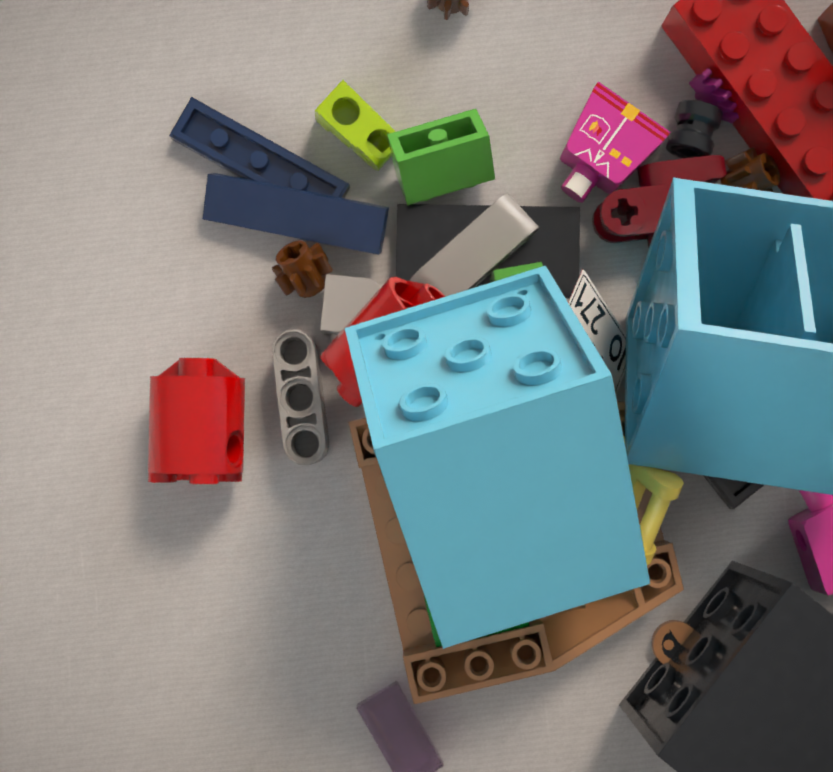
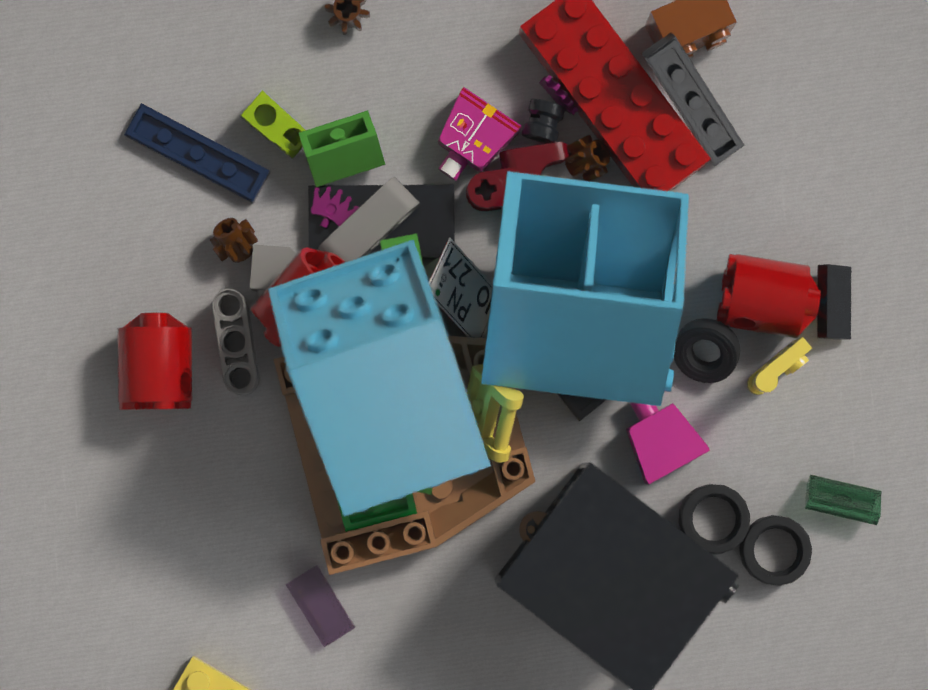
camera: 10 degrees left, 0 degrees up
(295, 213) = (227, 195): dark blue tile -> none
(425, 233) = (332, 208): none -> magenta piece

